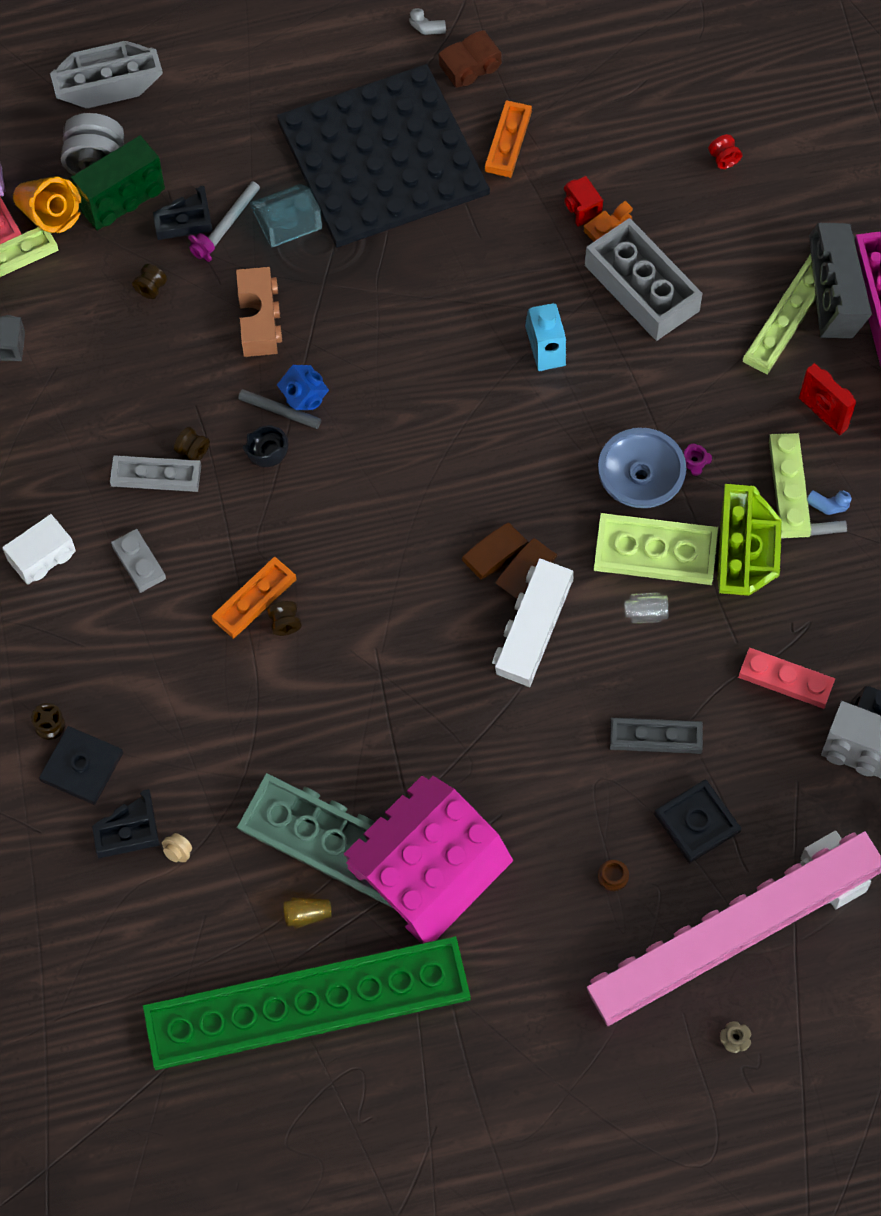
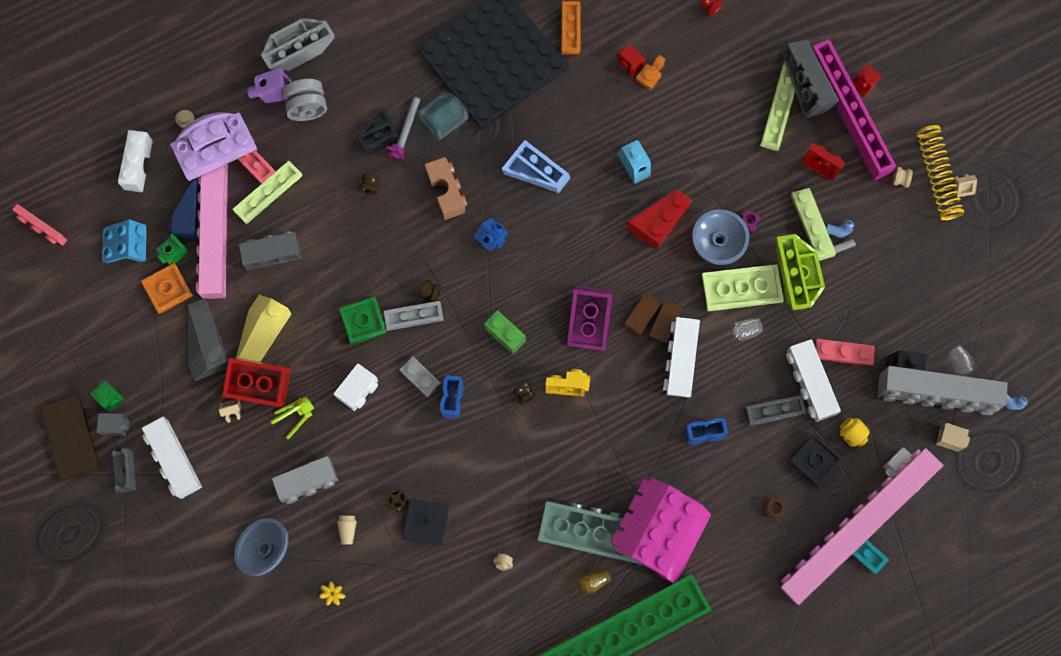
camera: 15 degrees left, 10 degrees up
(48, 118) = (269, 86): none -> medium lavender torso
(49, 203) = (288, 147): light orange cone -> none
(80, 463) = (362, 320): none -> green plate
(119, 182) = (329, 121): dark green brick -> none
(127, 828) = (468, 557): black wing -> none
(171, 598) = (450, 402): none -> blue brick
(254, 597) = (501, 383): orange plate -> none
(266, 446) = (479, 280): black hair -> none
(279, 409) = (478, 251): dark grey bar -> none
(281, 526) = (505, 332): none -> bright green brick
(355, 620) = (574, 384): none -> yellow plate
(396, 313) = (535, 168): none -> light blue wedge
(413, 536) = (590, 318): none -> magenta slope
(543, 735) = (700, 431): none -> blue brick
(560, 424) = (660, 219): none -> red wedge
(643, 279) = (685, 107): light grey brick -> none
(725, 705) = (813, 381): none -> white brick
(730, 1043) = (870, 592): dark tan plate -> none
(740, 981) = (870, 557): none -> teal plate
(767, 794) = (854, 432): none -> yellow head

